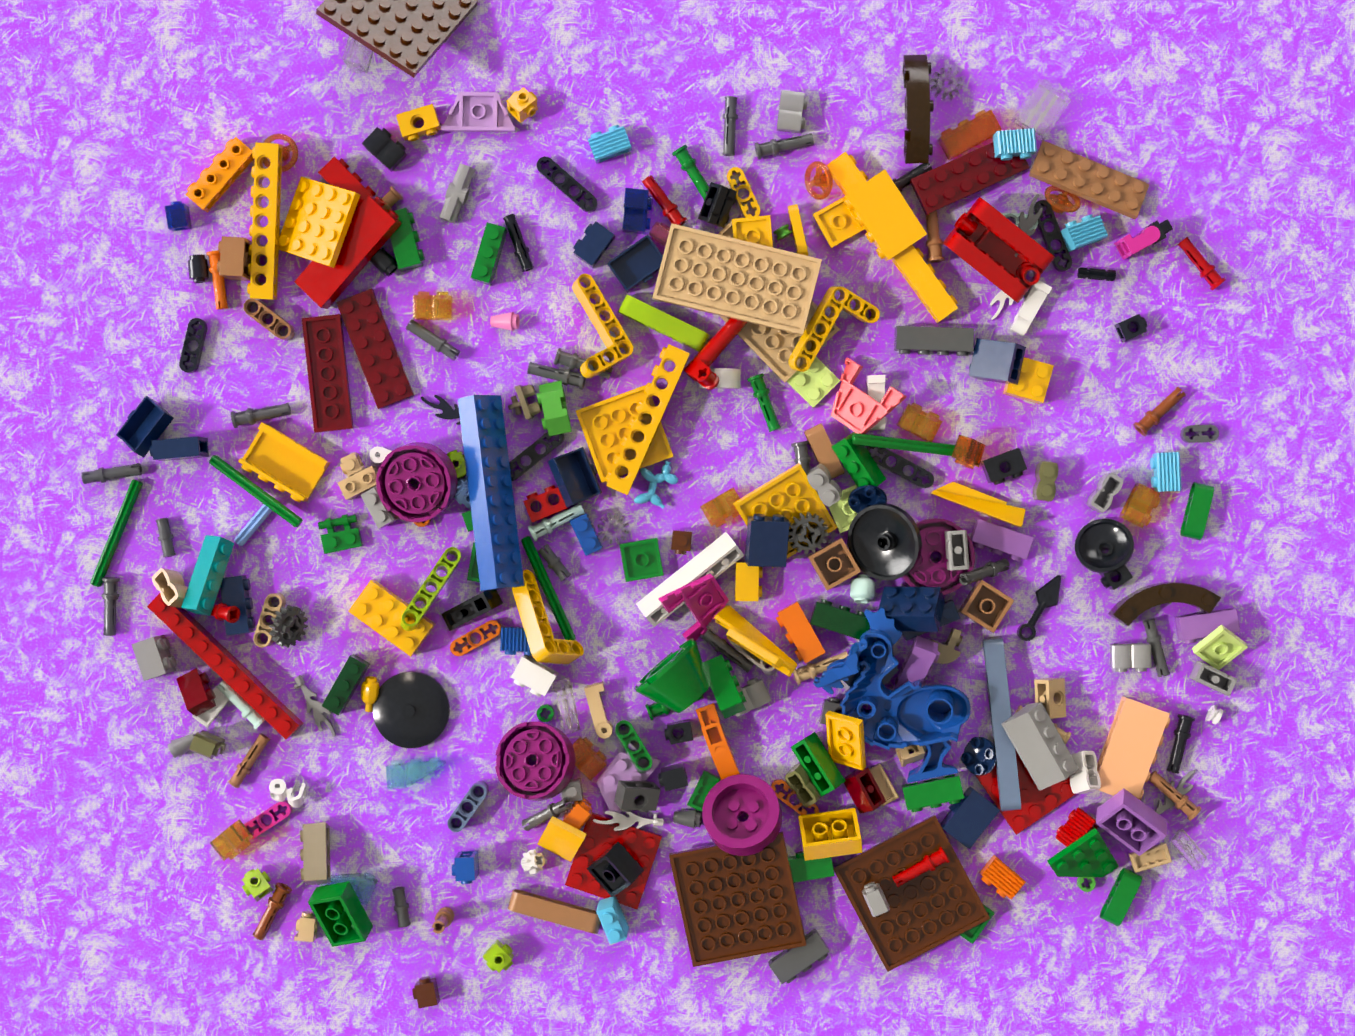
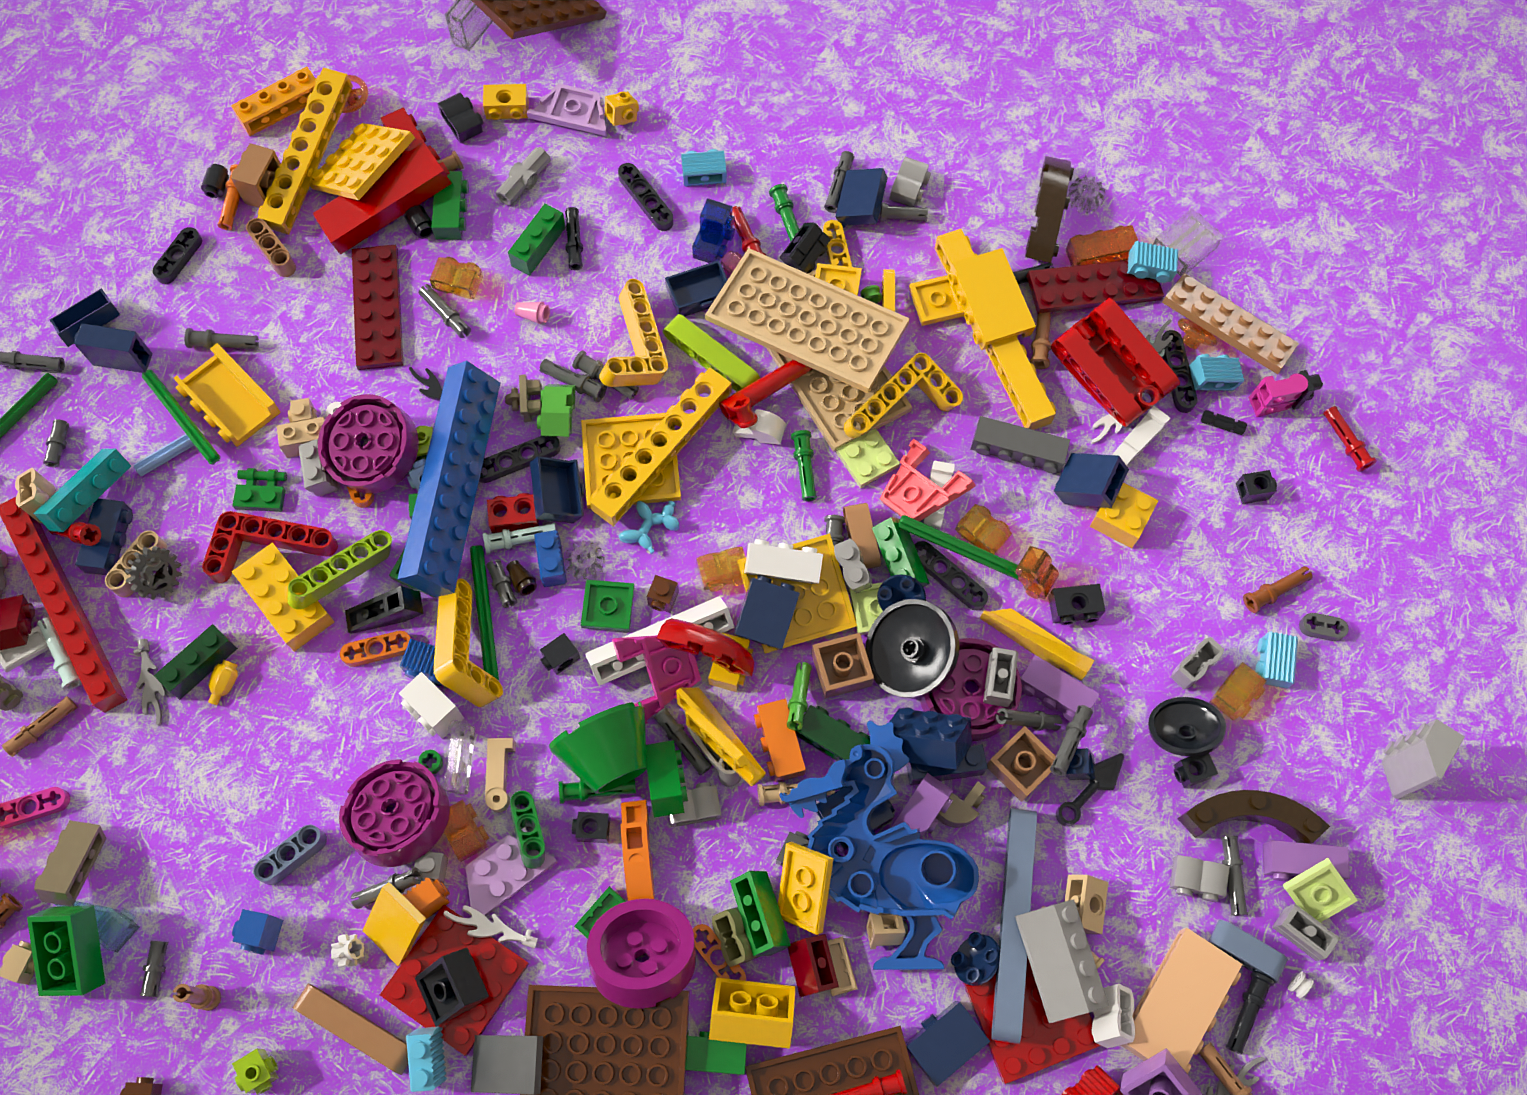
camera: 10 degrees right, 20 degrees down
(178, 216) = (215, 129): clear blue brick -> none
(279, 792) = (60, 775): white leg -> none
(327, 373) = (313, 317): dark red plate -> none
(359, 571) = (264, 536): none -> red beam
(405, 774) = (228, 793): clear light blue slope -> none
(411, 709) = (265, 716): black dish -> none
(568, 555) = (521, 579): none -> dark brown cone
(593, 244) = (656, 258): dark blue brick -> none
(616, 608) = (559, 654): none -> black brick
(647, 794) = (503, 882): dark grey brick -> none
(669, 910) = (507, 1064): none -> dark grey tile
(673, 777) = (566, 880): black brick -> none
(688, 818) = (570, 945): dark grey cone -> none
(733, 580) = (713, 644): none -> red brick
(753, 141) = (861, 197): none -> dark blue container
(770, 500) = (783, 562): none -> white brick
(807, 596) = (798, 704): none -> bright green pin
(814, 531) = (818, 605): dark grey gear -> none
(821, 179) = (927, 252): clear orange piece -> none
(862, 589) = (871, 706): light aqua head -> none
(933, 792) = (904, 993): green brick -> none
(1020, 576) = (1075, 731): none -> dark grey pin
(1027, 595) = (1081, 766): none -> dark blue brick
(1044, 487) = (1124, 633): olive brick -> none
(1173, 700) = (1248, 950): none -> sand blue beam
(1197, 511) = (1309, 716): green beam -> none
(1281, 534) = (1420, 757): none -> light grey slope

